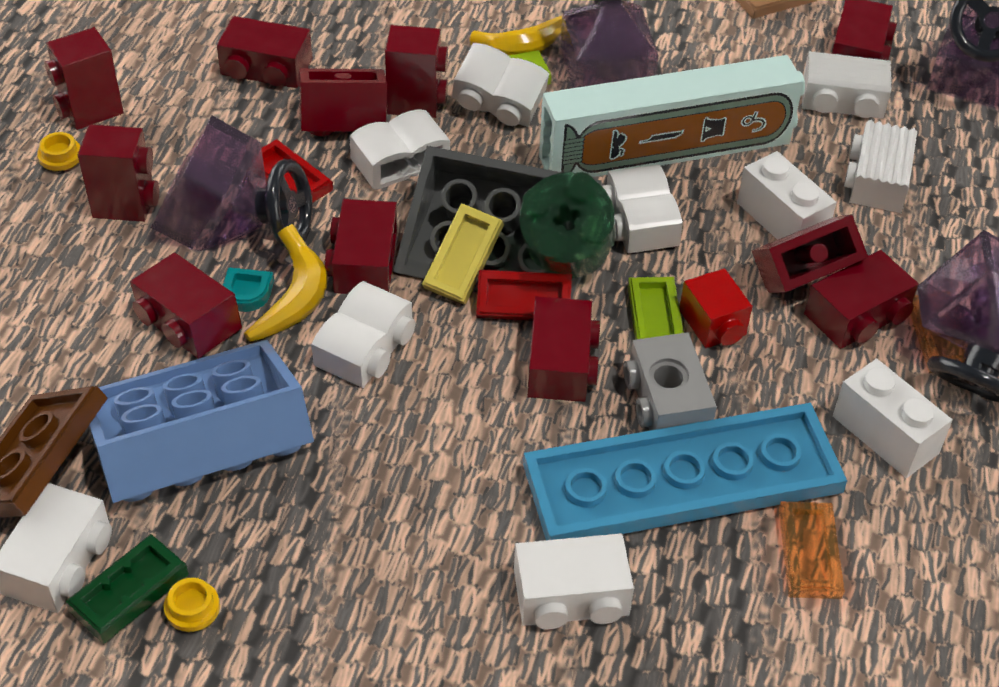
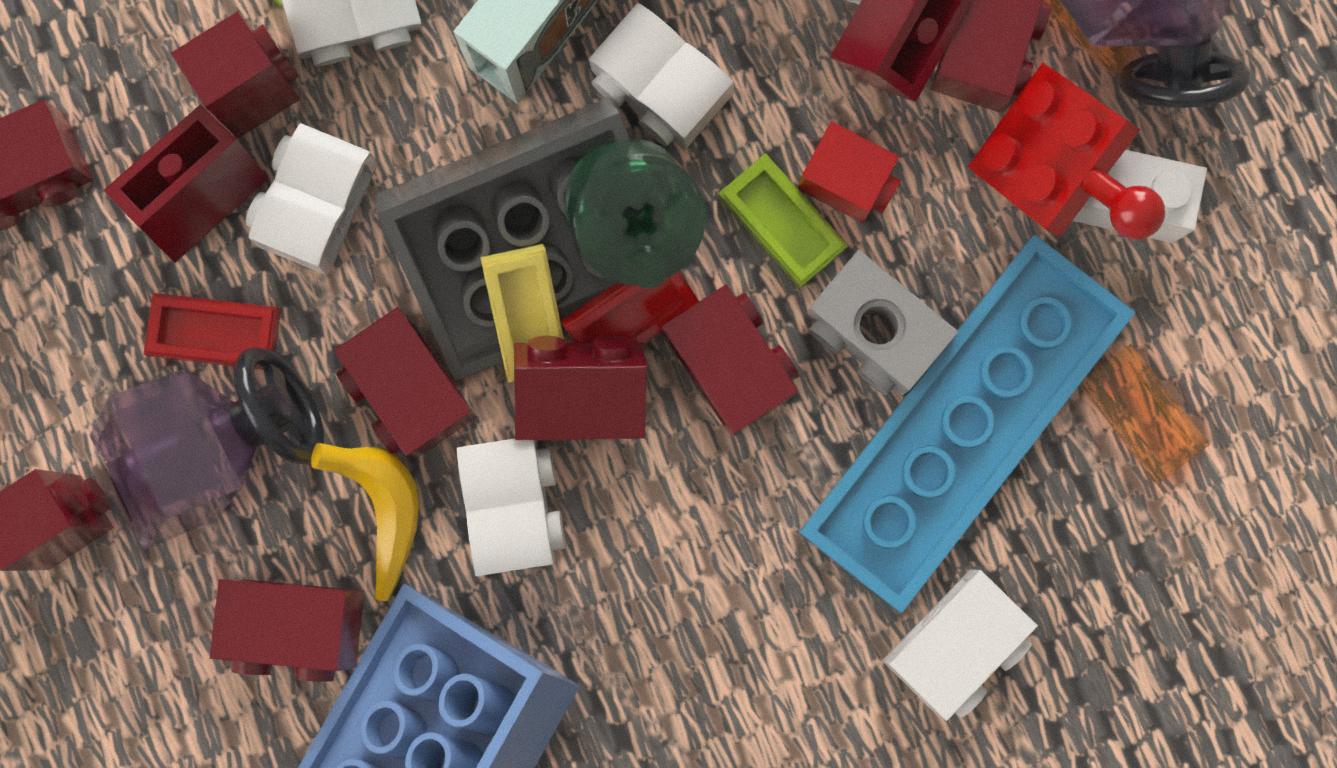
camera: 35 degrees left, 35 degrees up
(250, 287) = (320, 535): teal tile -> none
(459, 298) = (580, 389): none -> dark red brick
(862, 355) = (1058, 153): none -> red plate

